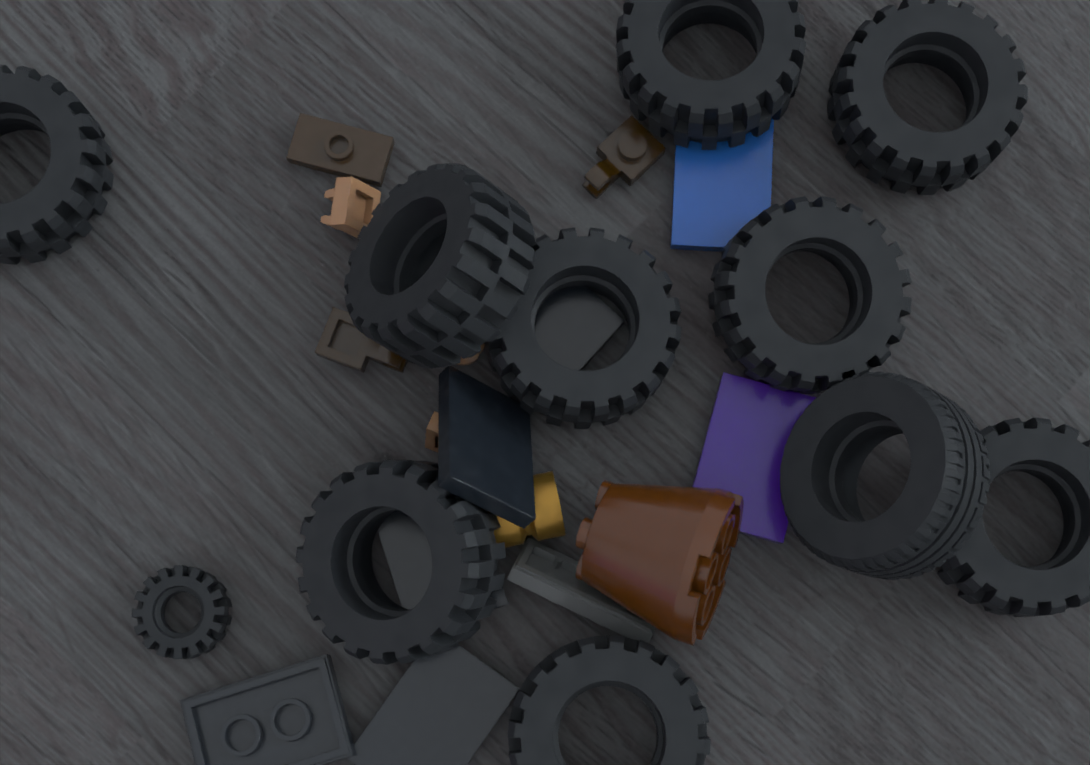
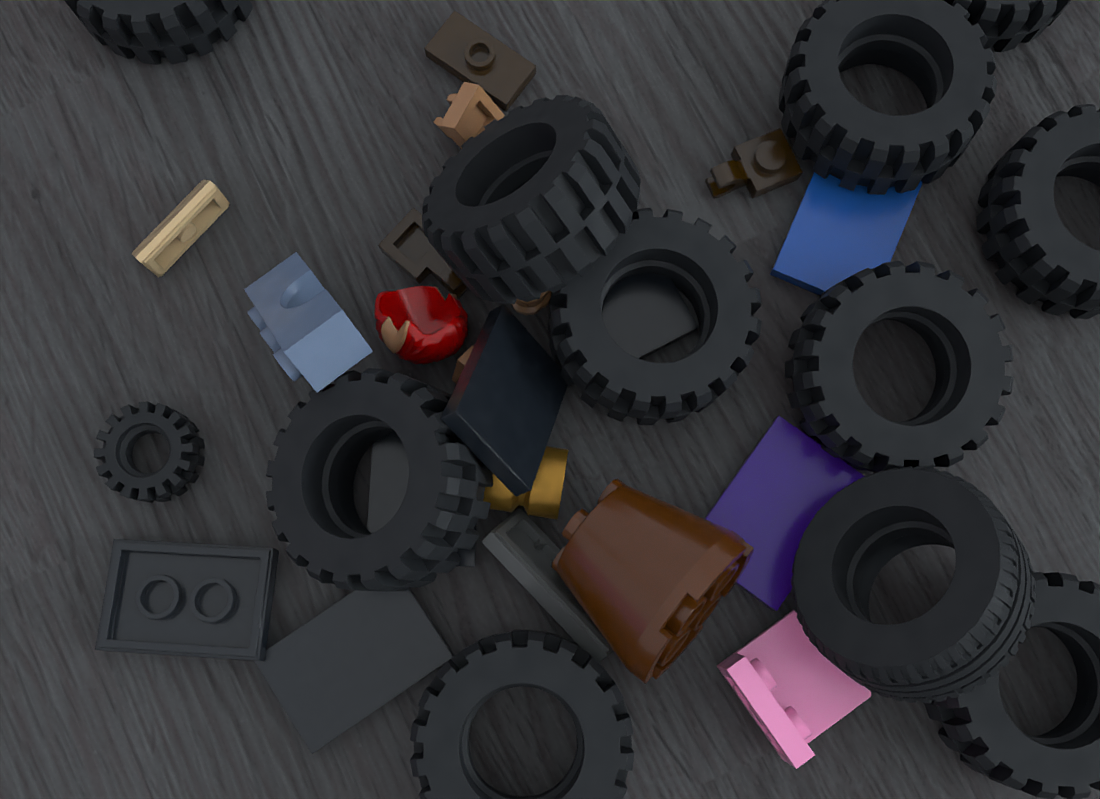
camera: 20 degrees right, 0 degrees up
(127, 400) = (181, 228): none -> tan slope
(281, 446) = (304, 324): none -> sand blue arch
(380, 408) = (421, 323): none -> red hair
(819, 604) = (790, 688): none -> bright pink bracket

